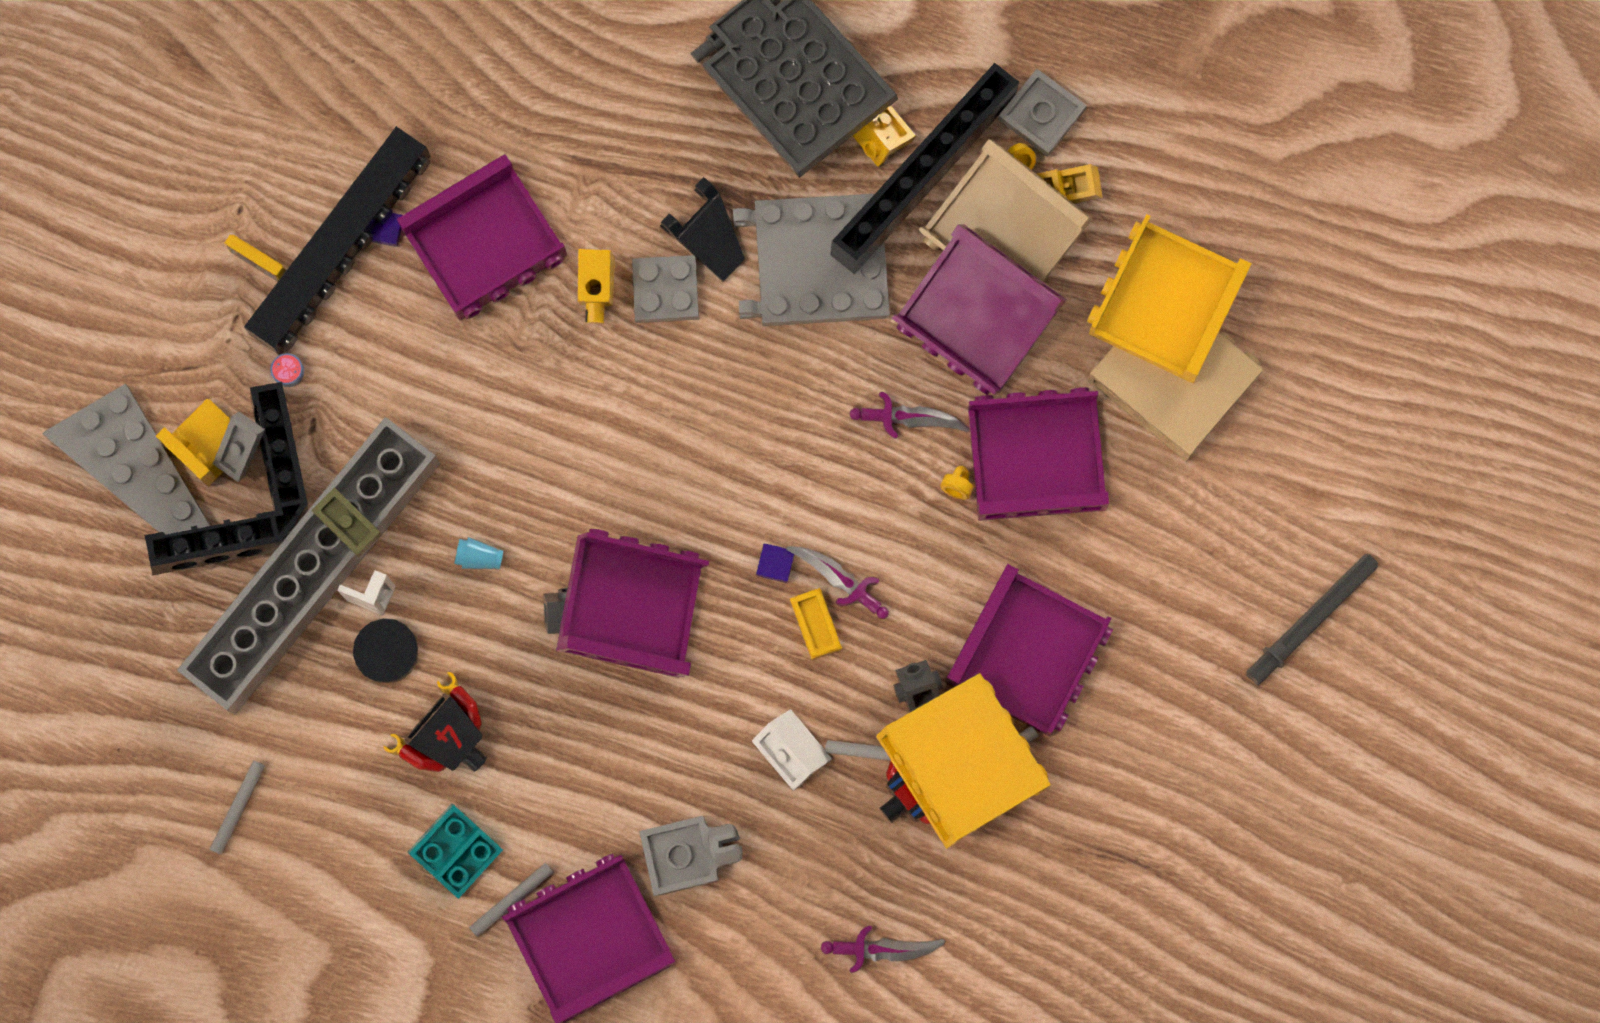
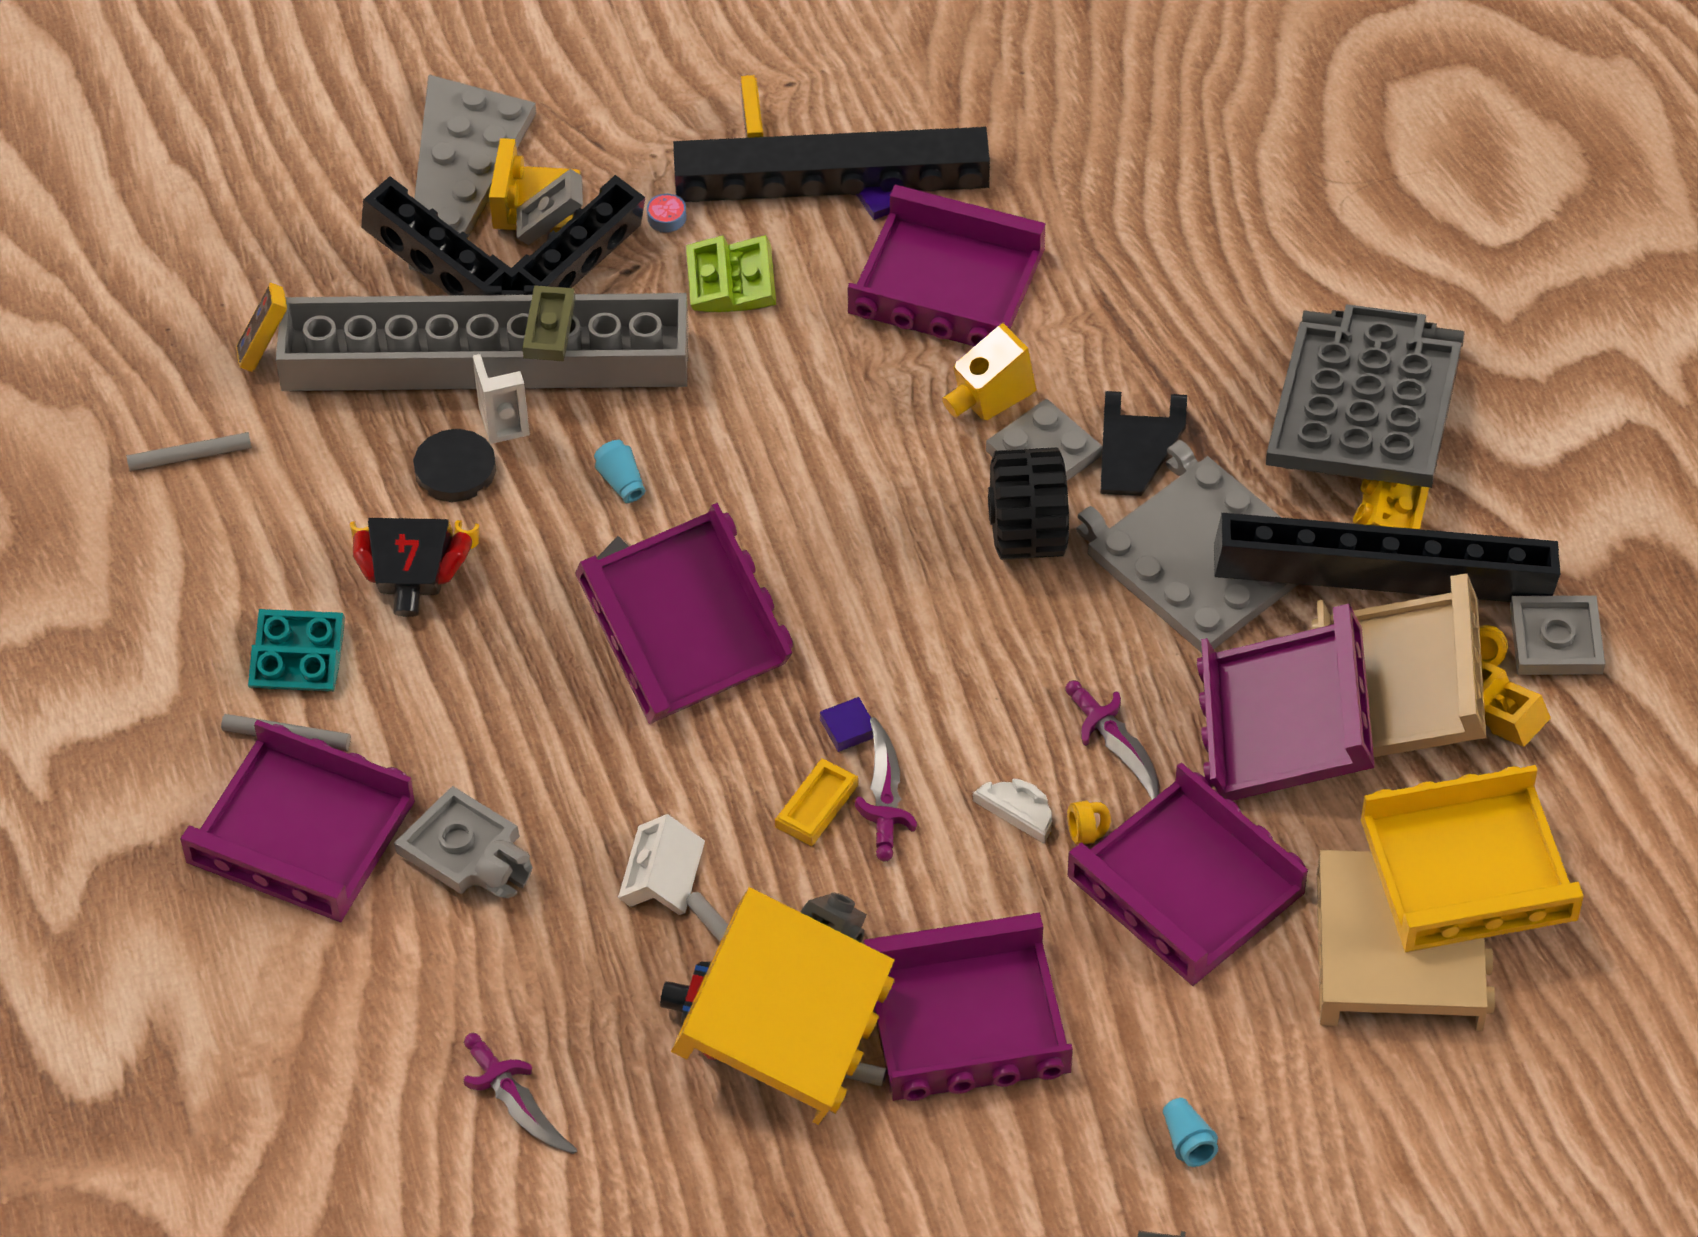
camera: 50 degrees right, 25 degrees down
(185, 697) = (261, 327): none -> yellow tile
(372, 369) = (730, 275): none -> lime slope
(717, 338) = (1029, 503): none -> black wheel
(911, 509) = (1019, 805): none -> white tile
(1206, 593) = (1190, 1135): none -> medium azure cone

